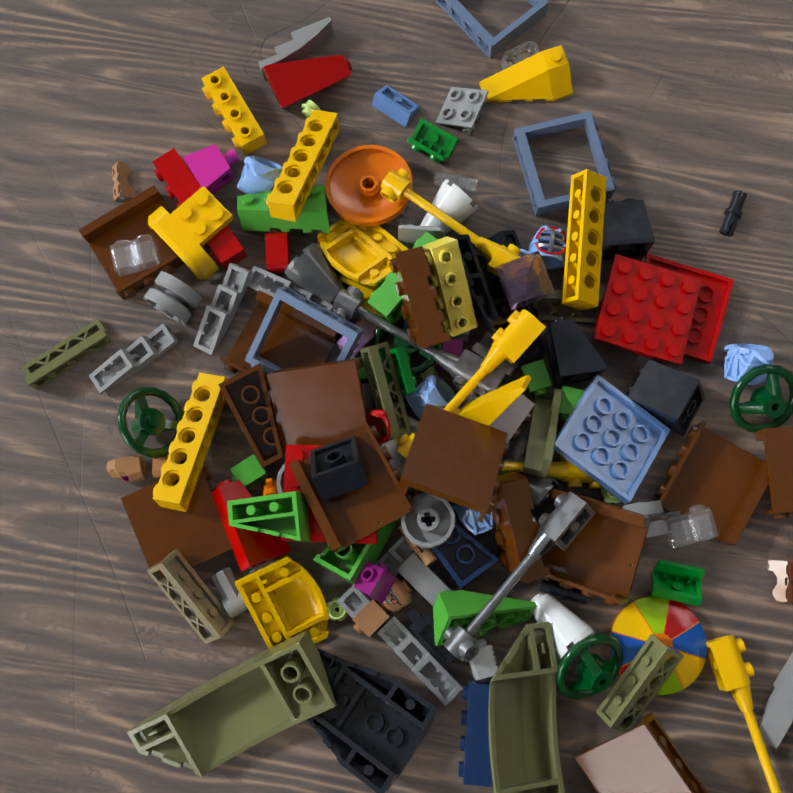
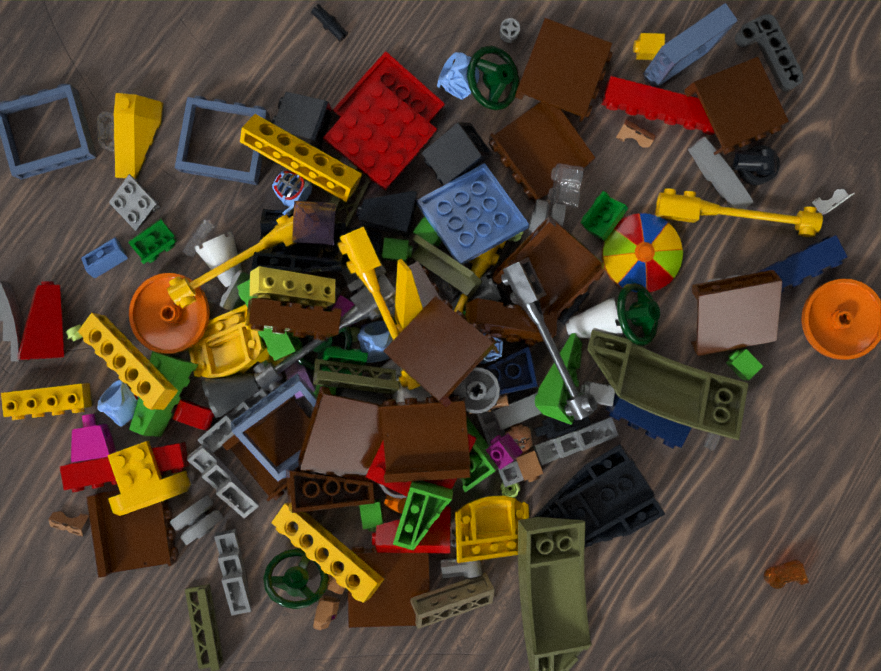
camera: 70 degrees left, 10 degrees up
(135, 255) = (142, 537): clear brick -> none
(338, 468) = (405, 444): black slope -> none
(373, 418) = (374, 395): red piece -> none
(636, 683) = (665, 283): olive fence -> none

